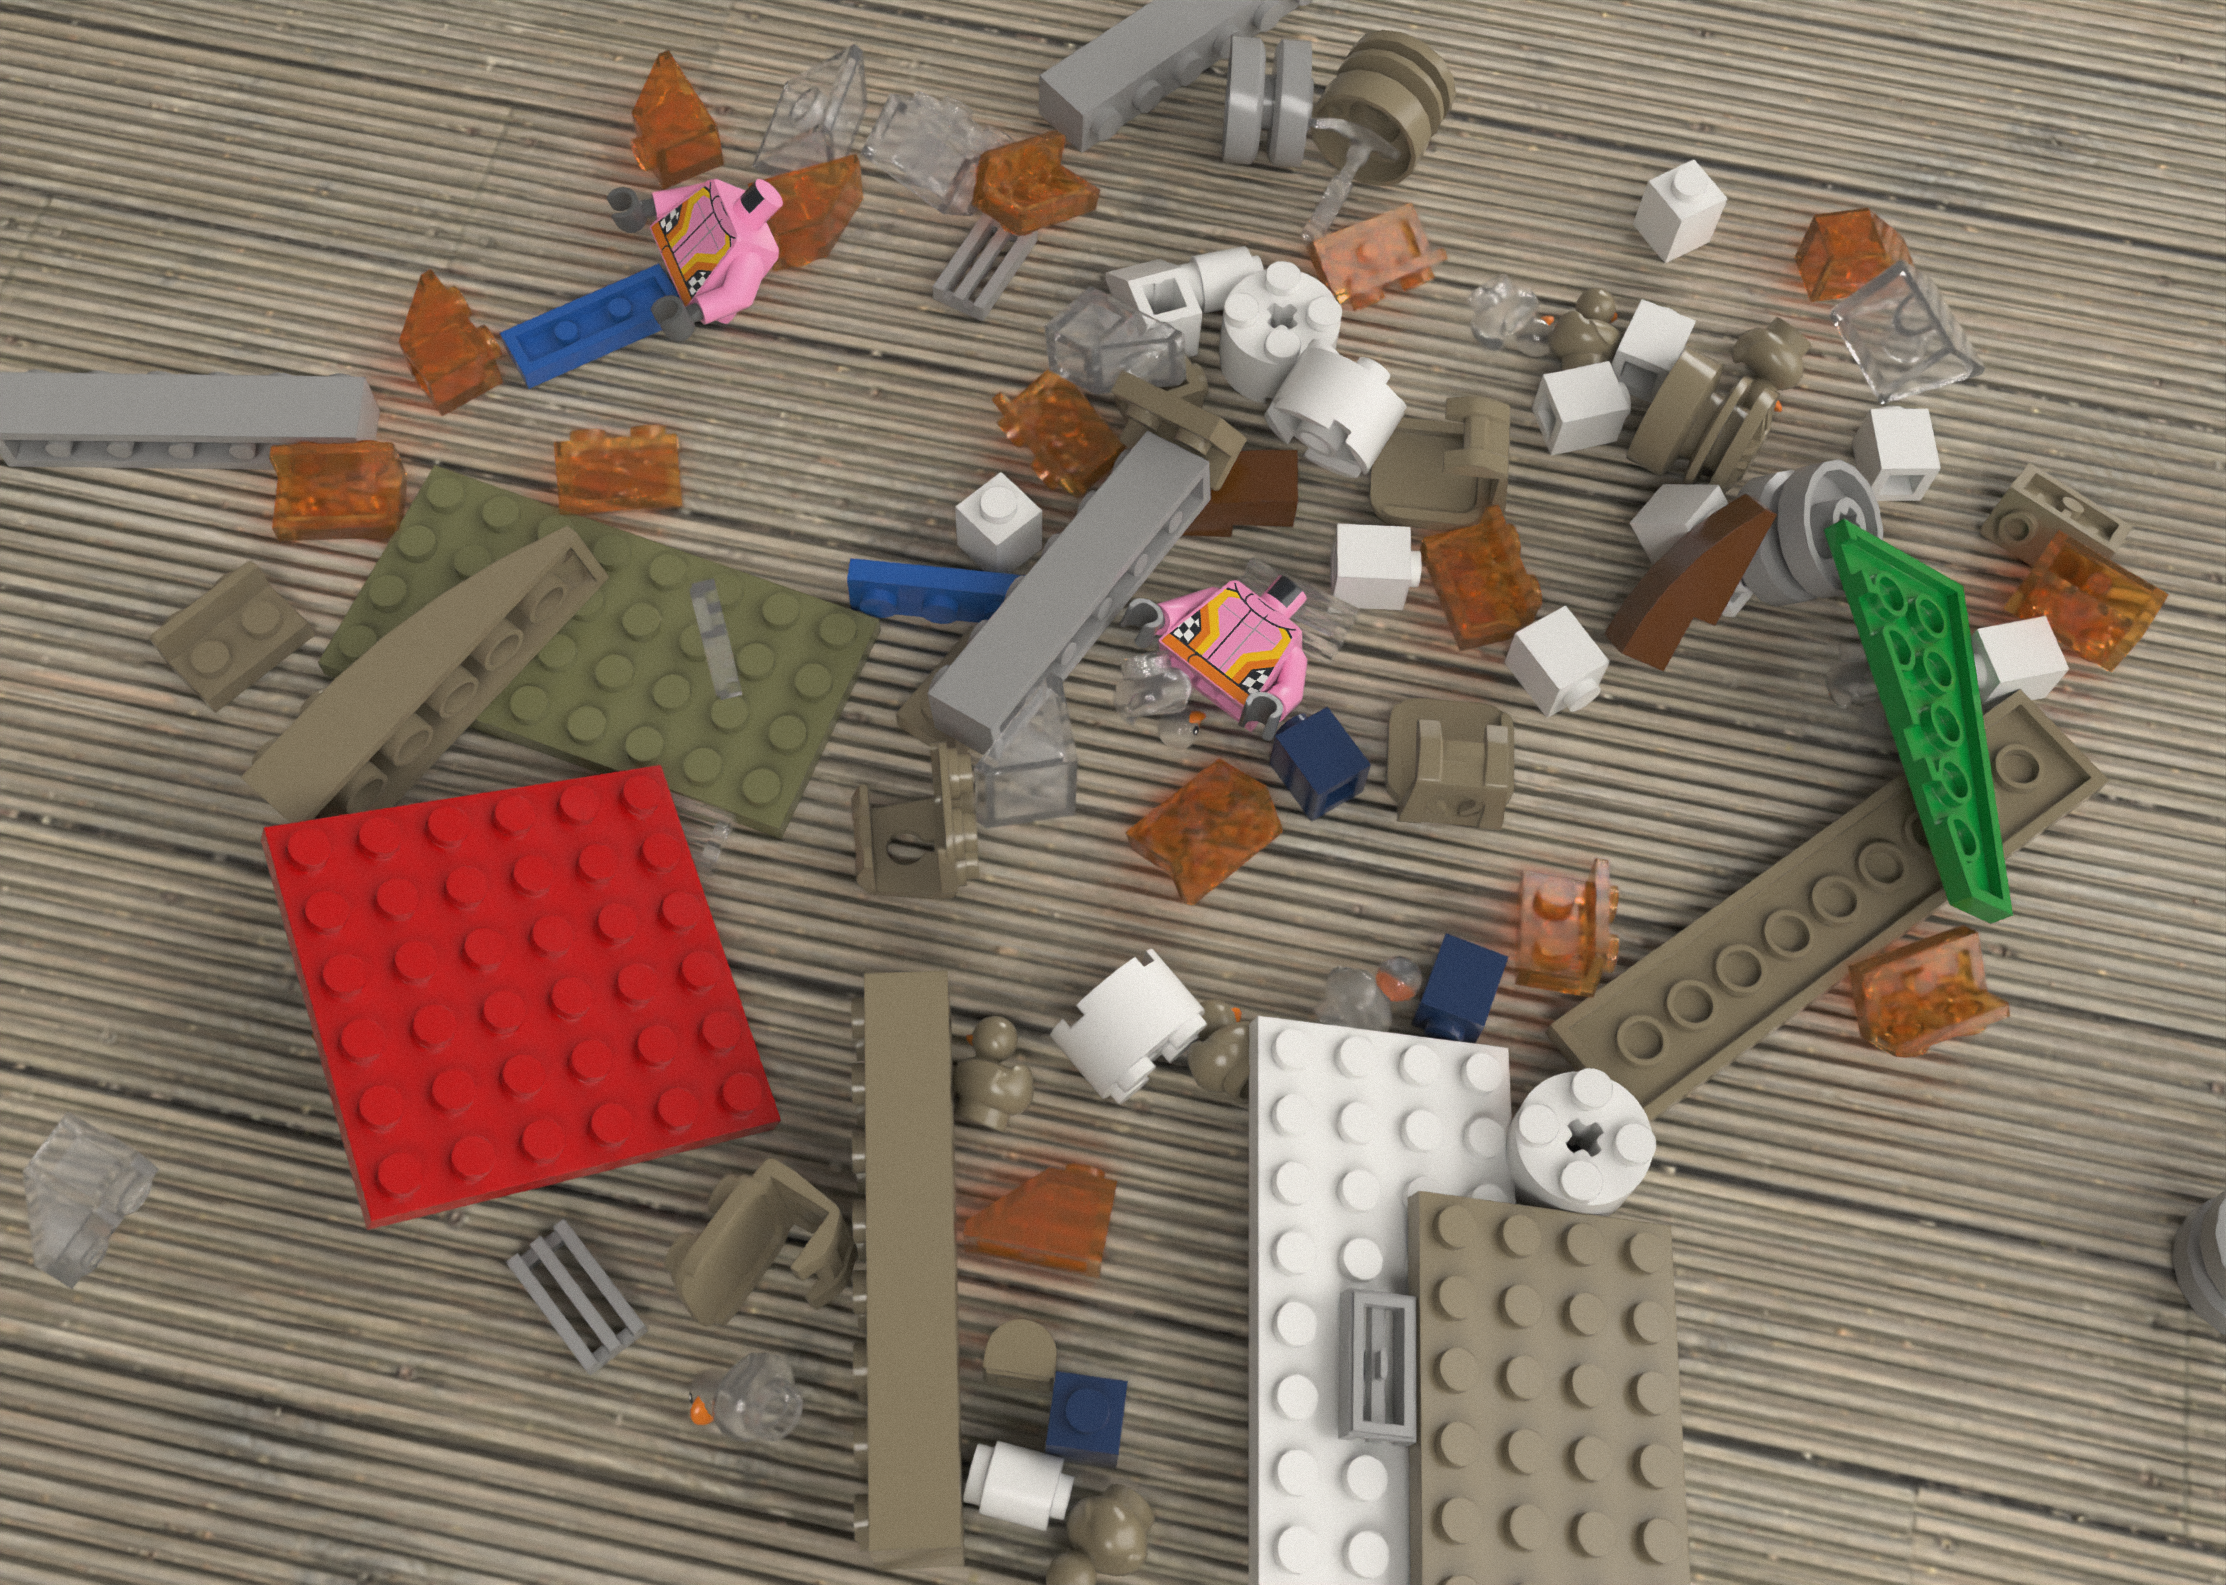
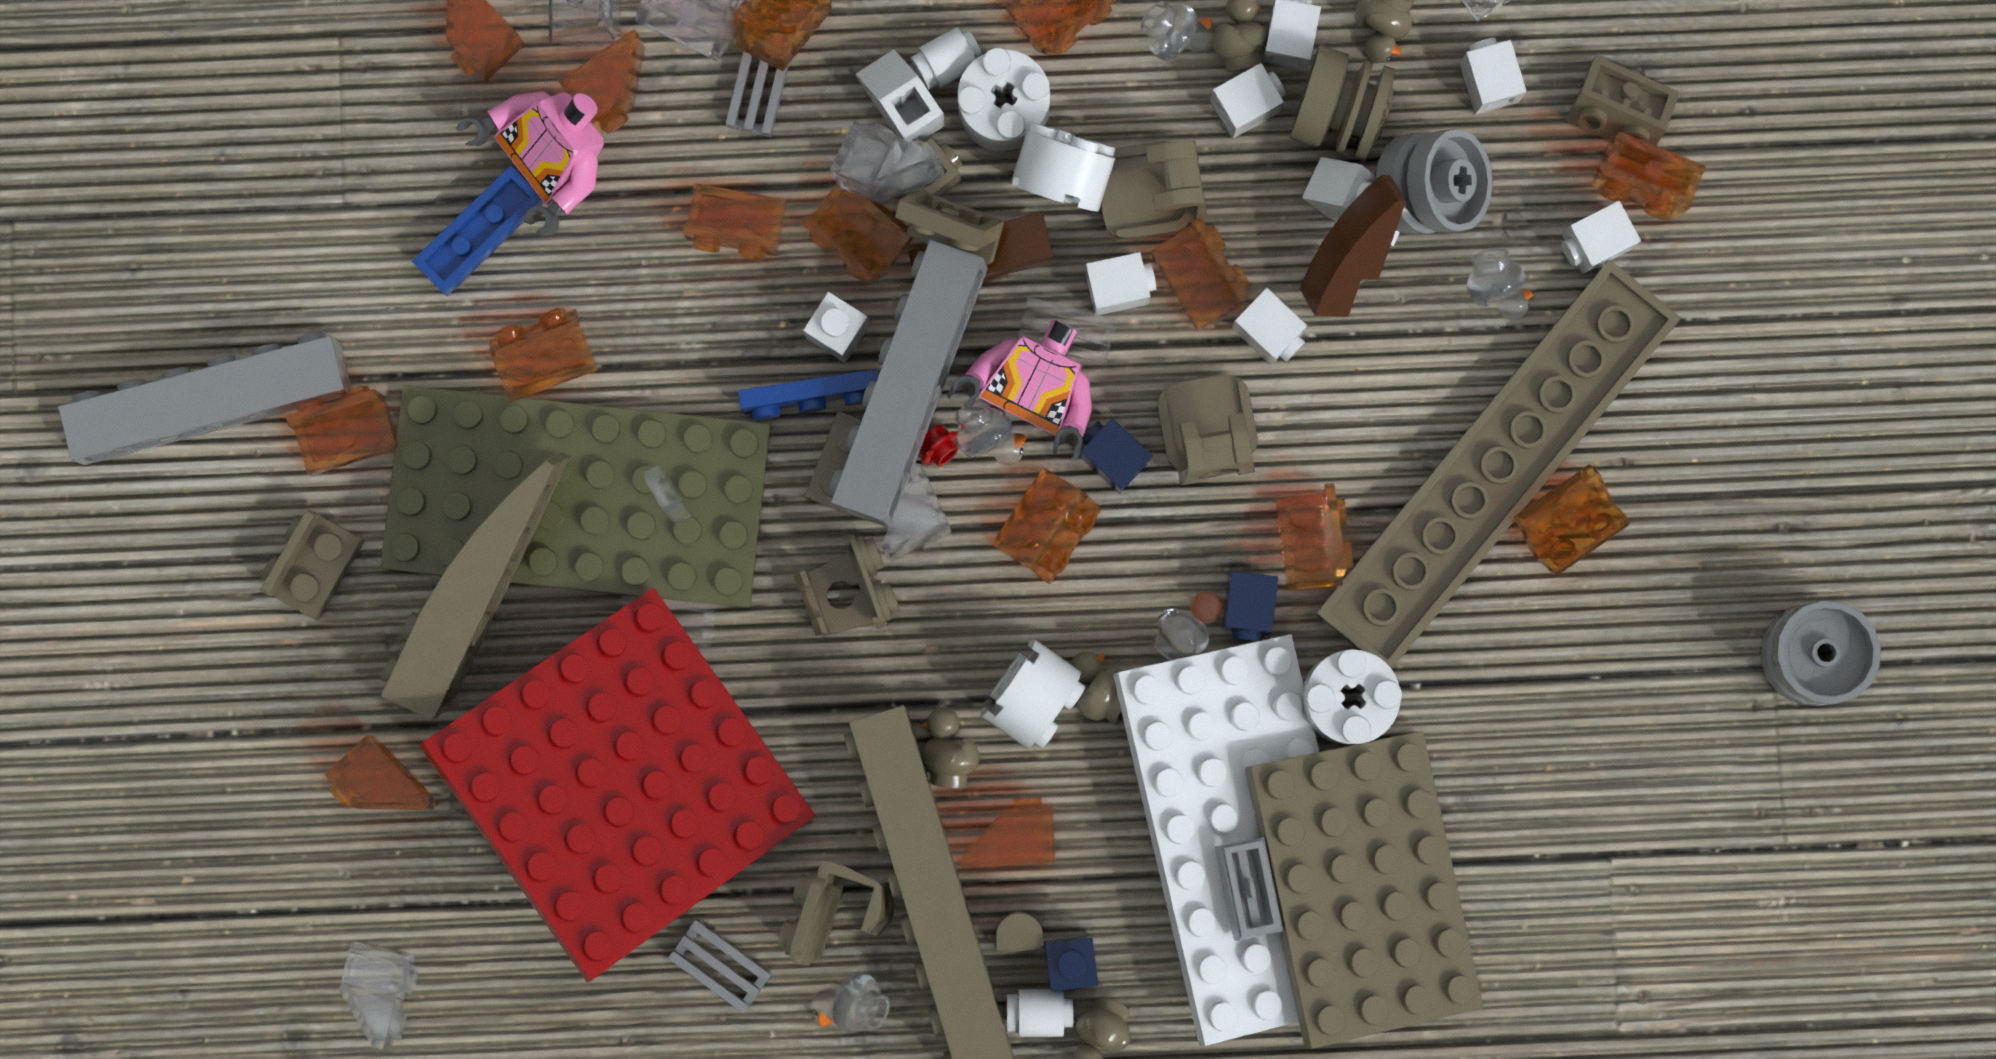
camera: 10 degrees left, 20 degrees up
(200, 917) = (377, 780): none -> clear orange slope
(445, 349) = (373, 285): clear orange slope -> none
(909, 387) = (735, 221): none -> clear orange bracket
(1089, 696) = (938, 446): none -> red plate
(1927, 681) = (1533, 276): green wing -> none

